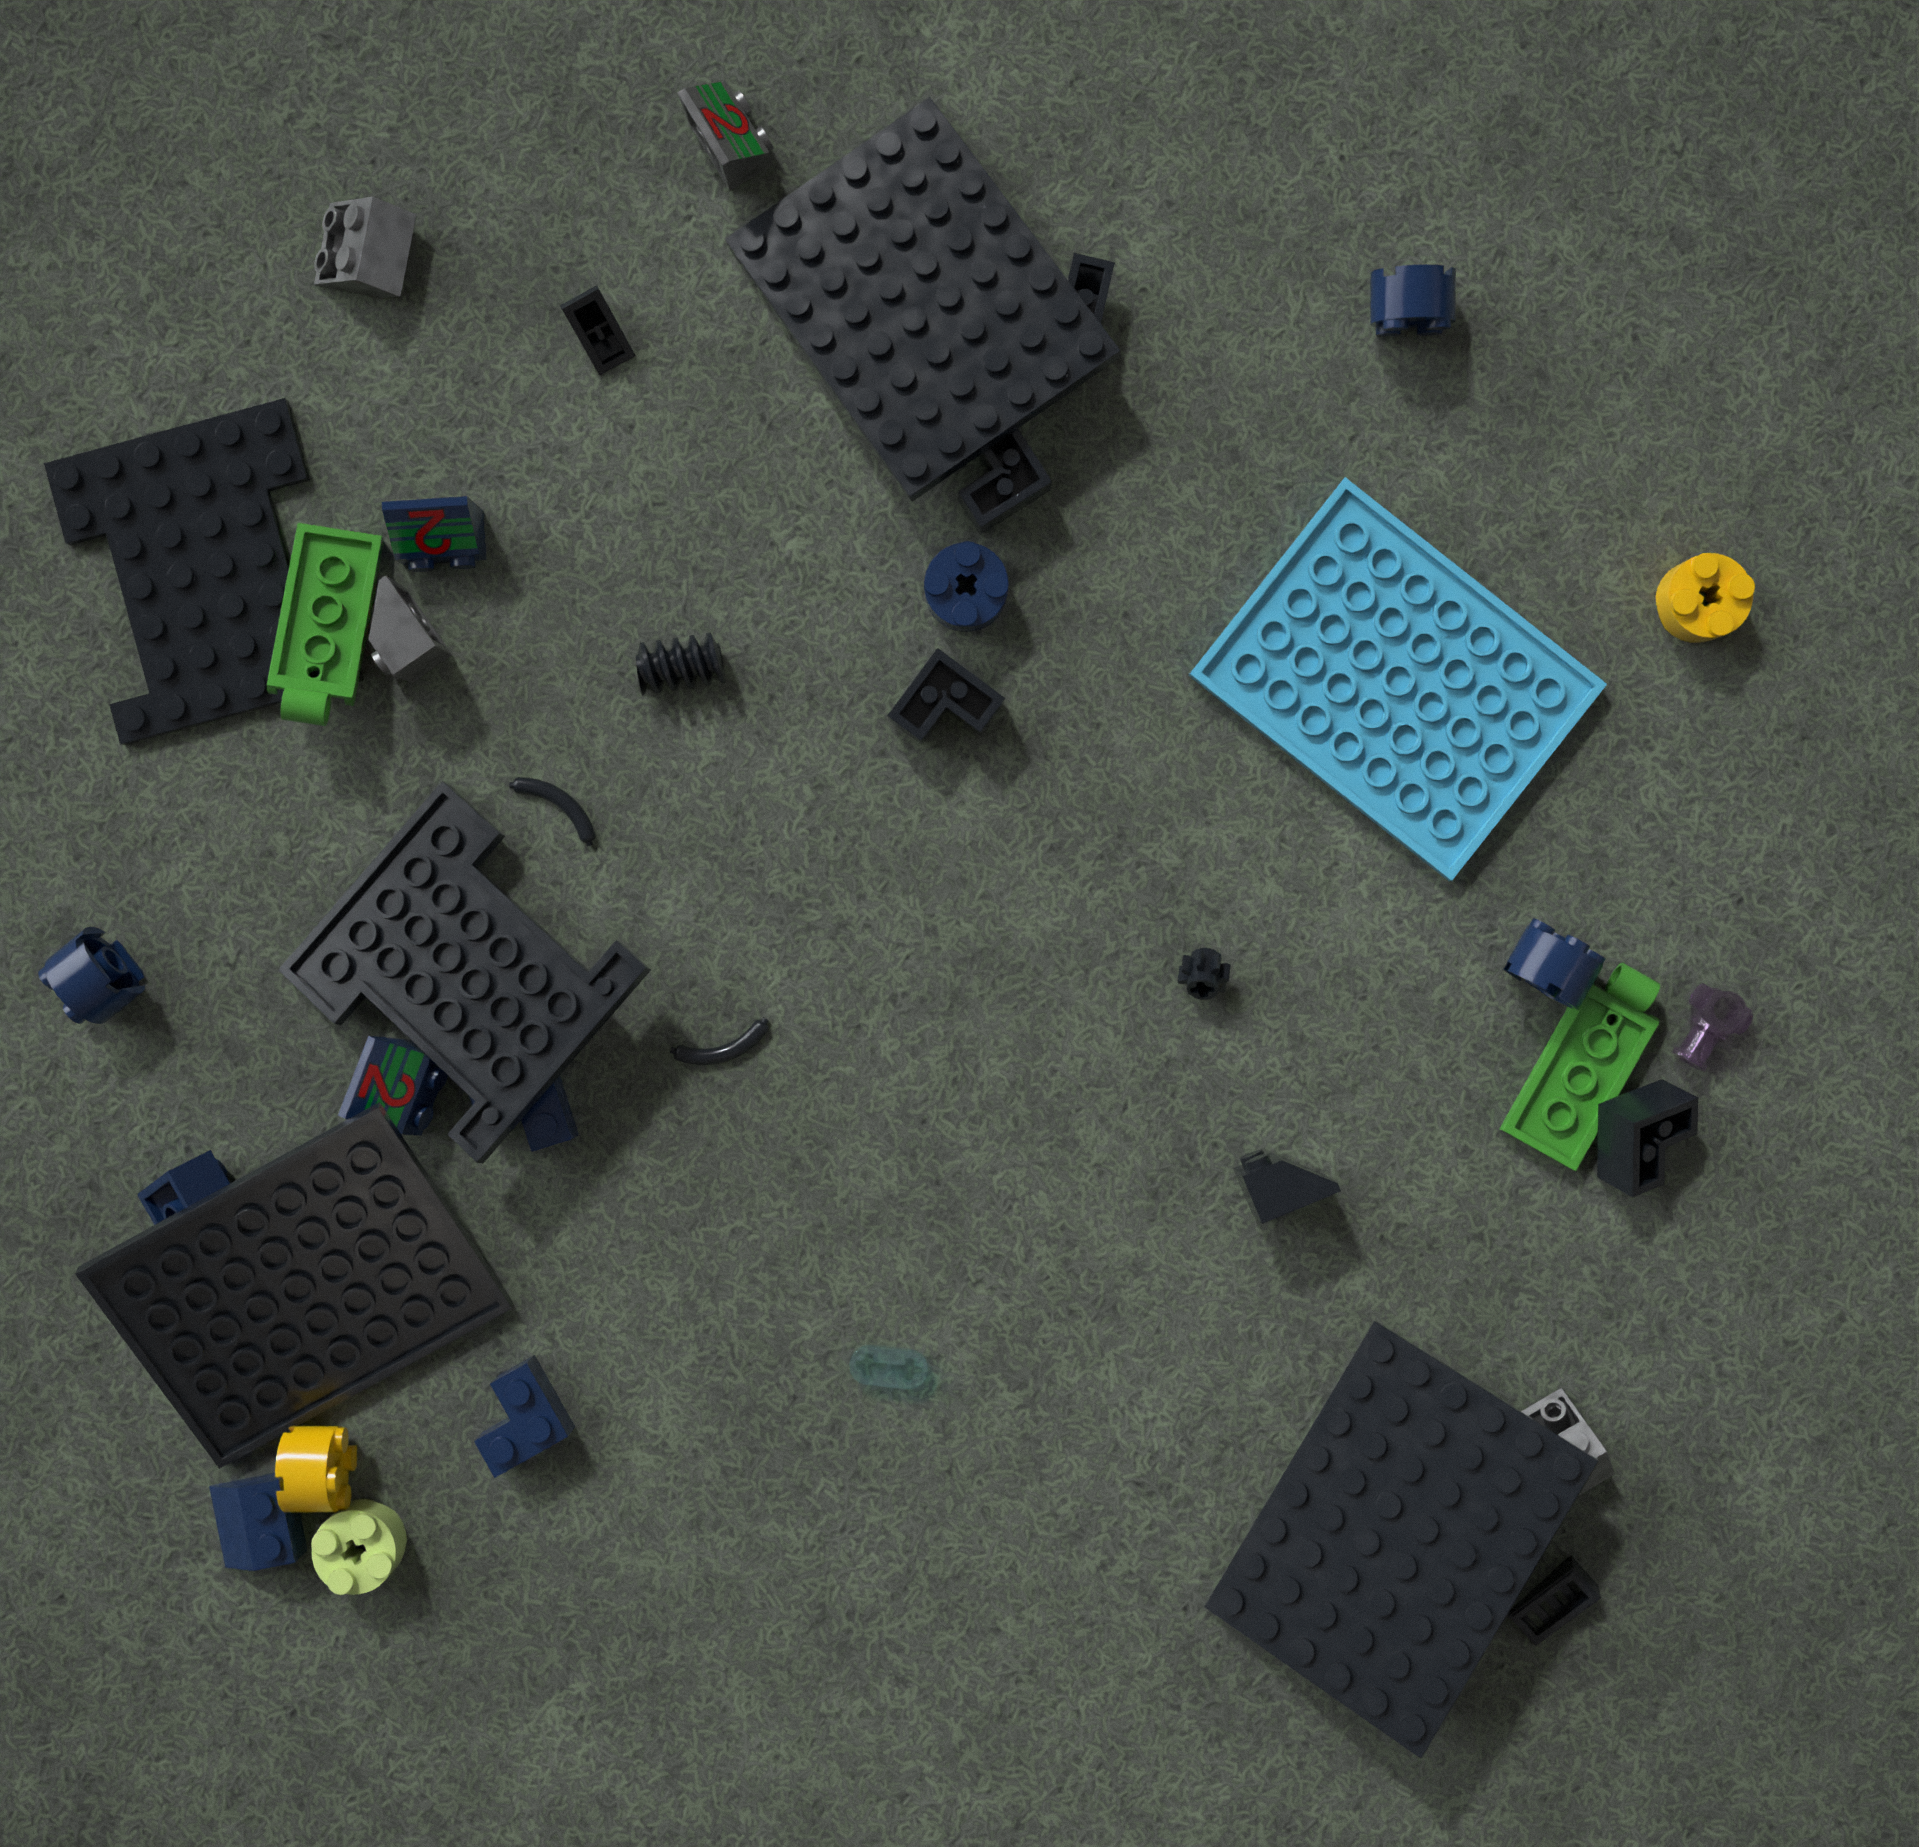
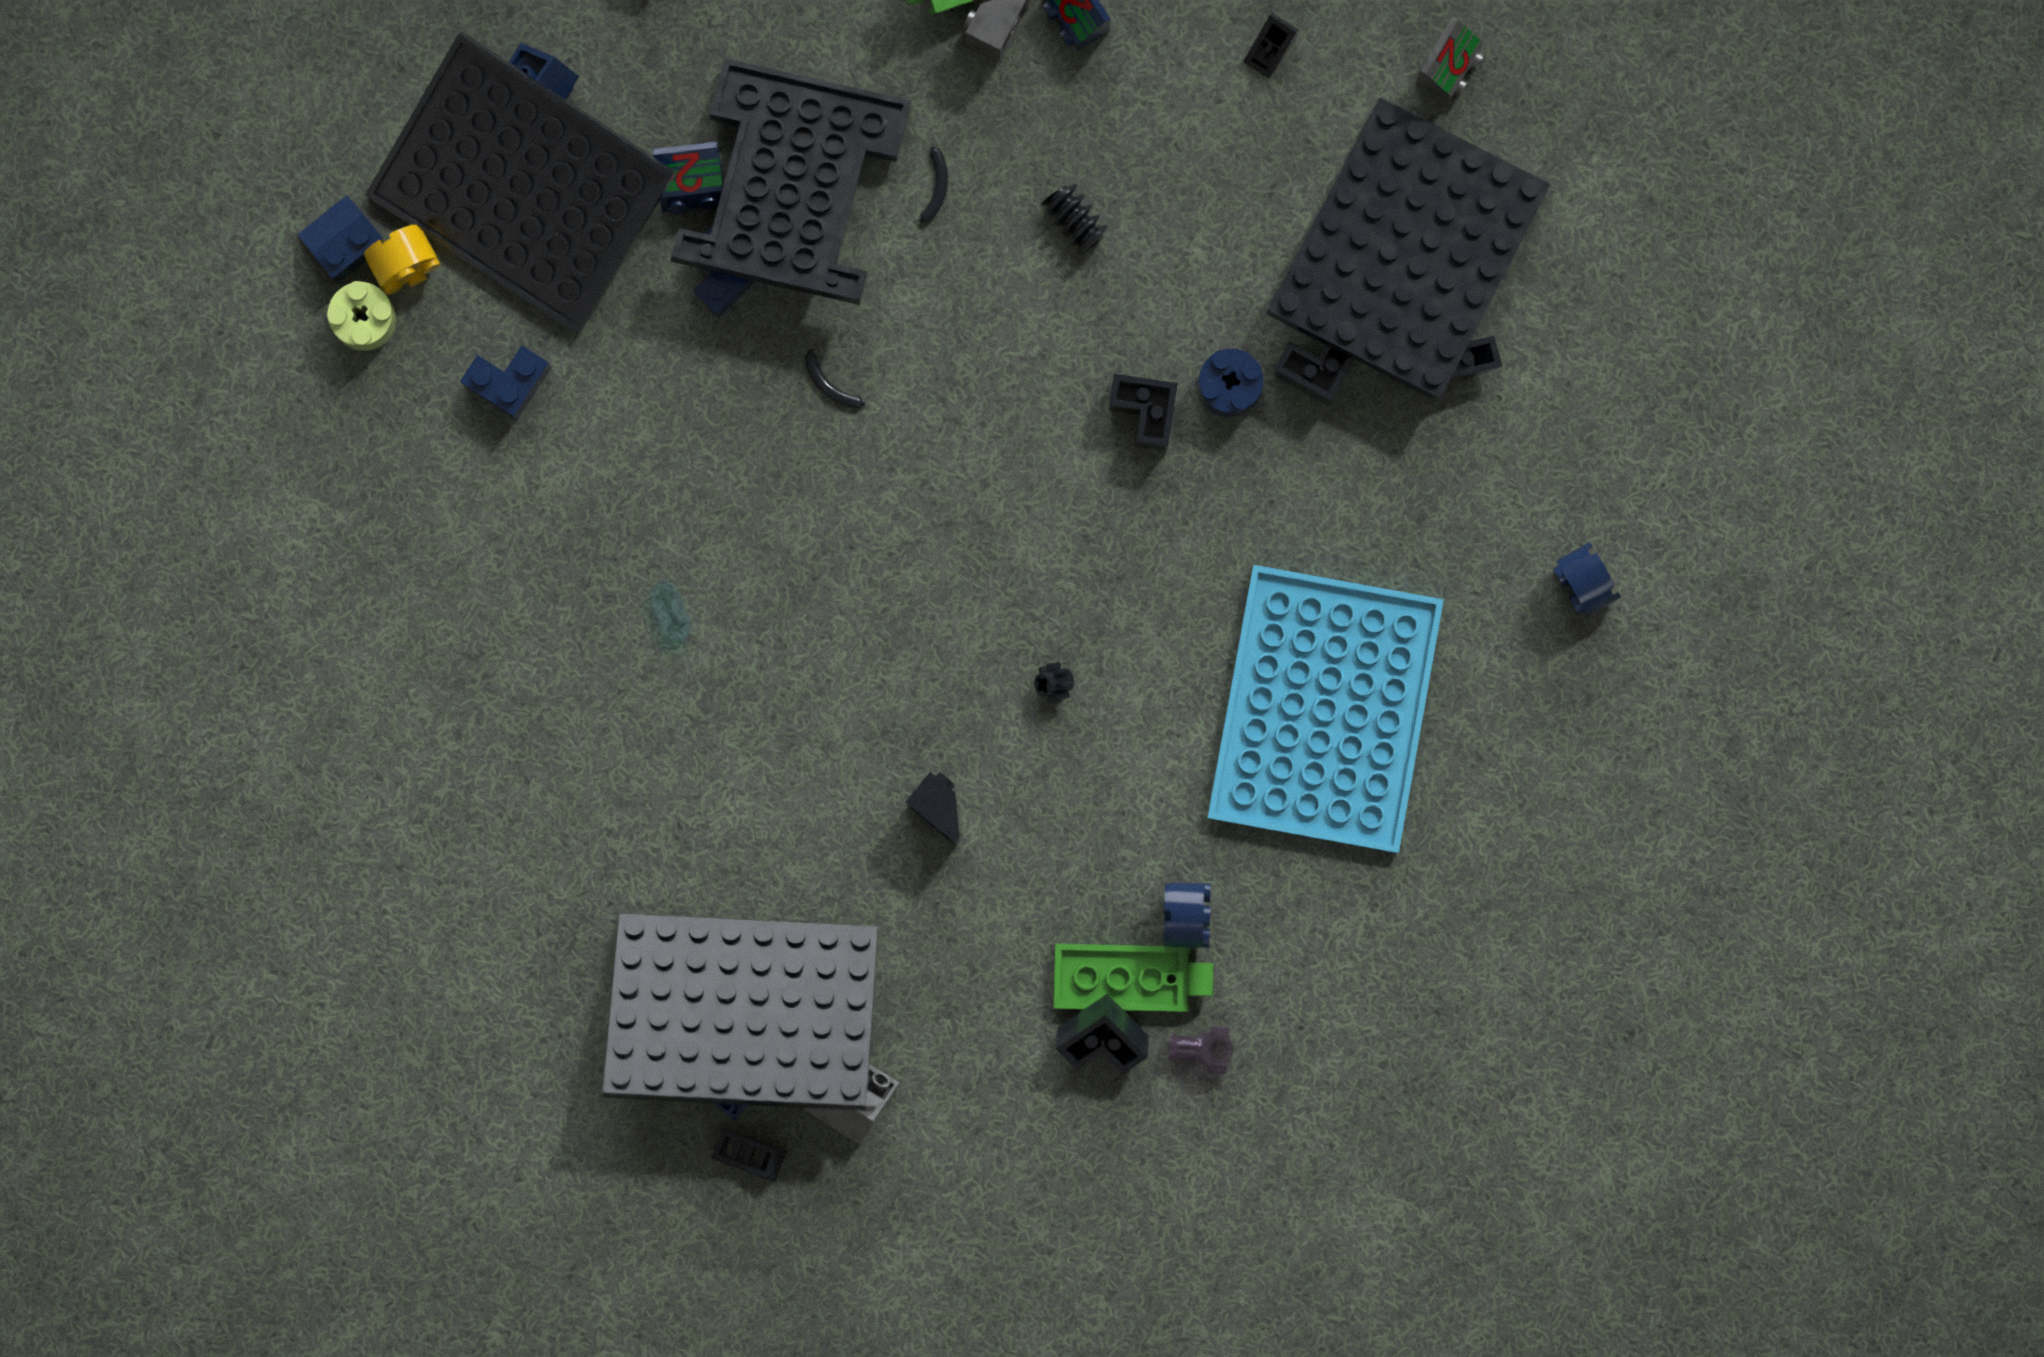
camera: 65 degrees right, 5 degrees down
(1727, 591) = (1506, 874): yellow brick -> none

